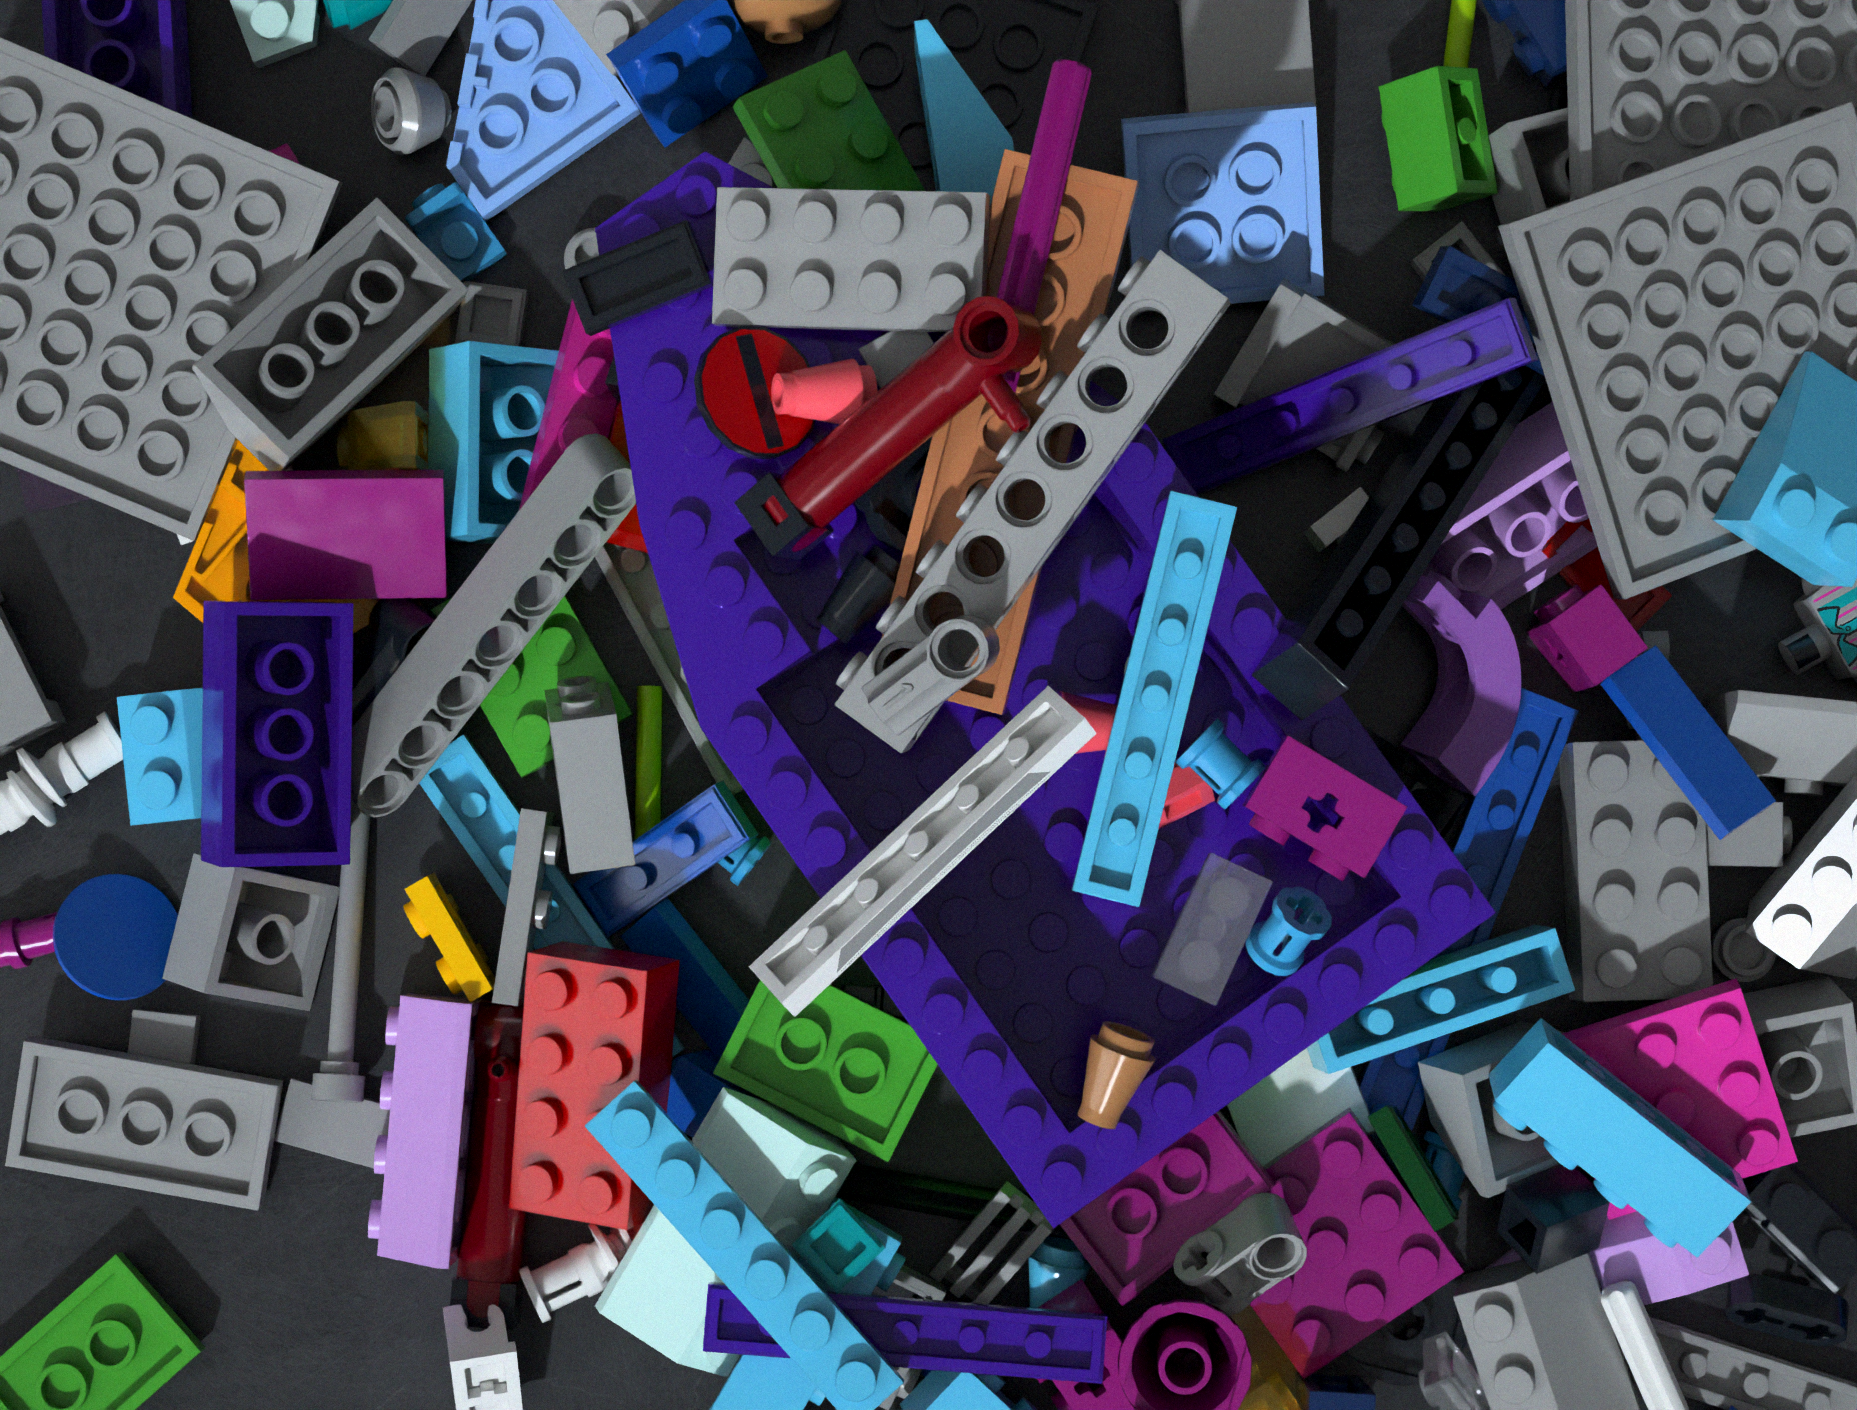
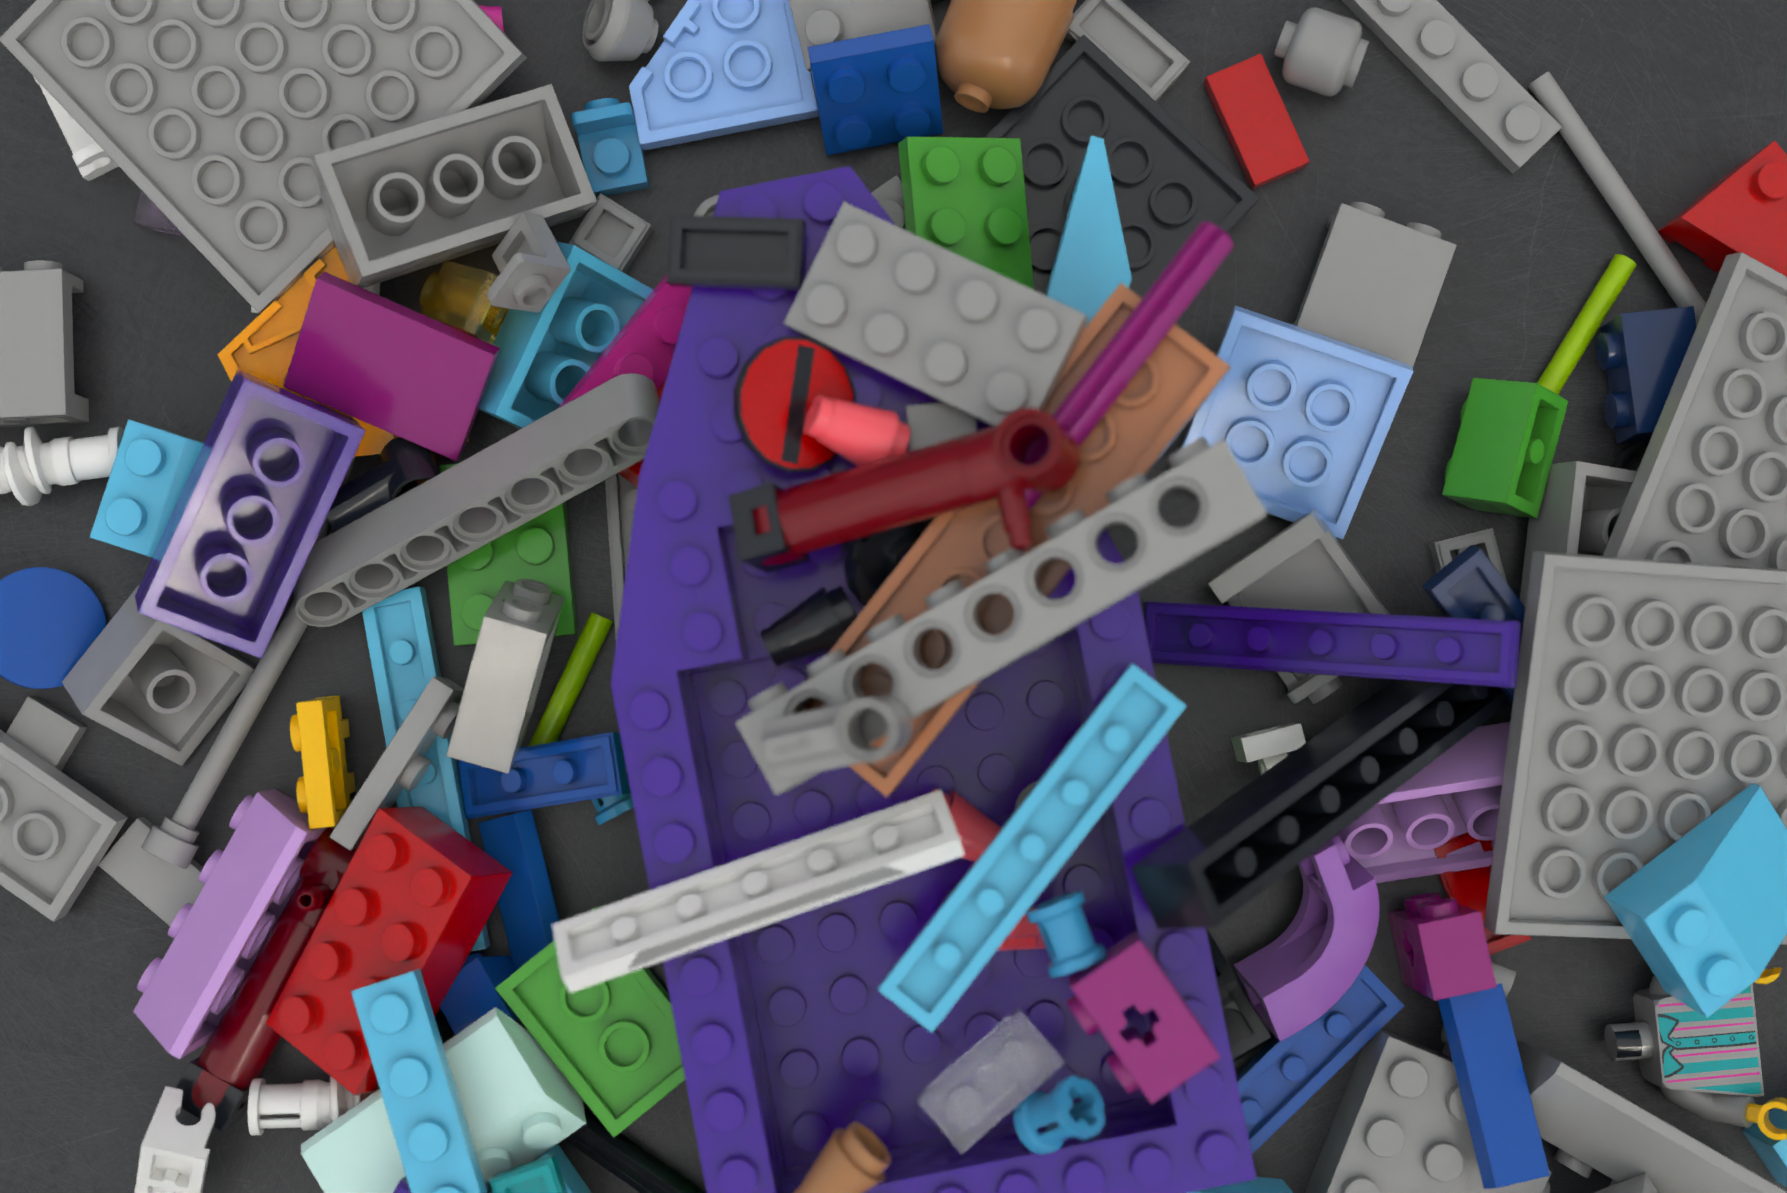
camera: 25 degrees right, 0 degrees up
(436, 378) = (528, 266): none -> light grey bracket

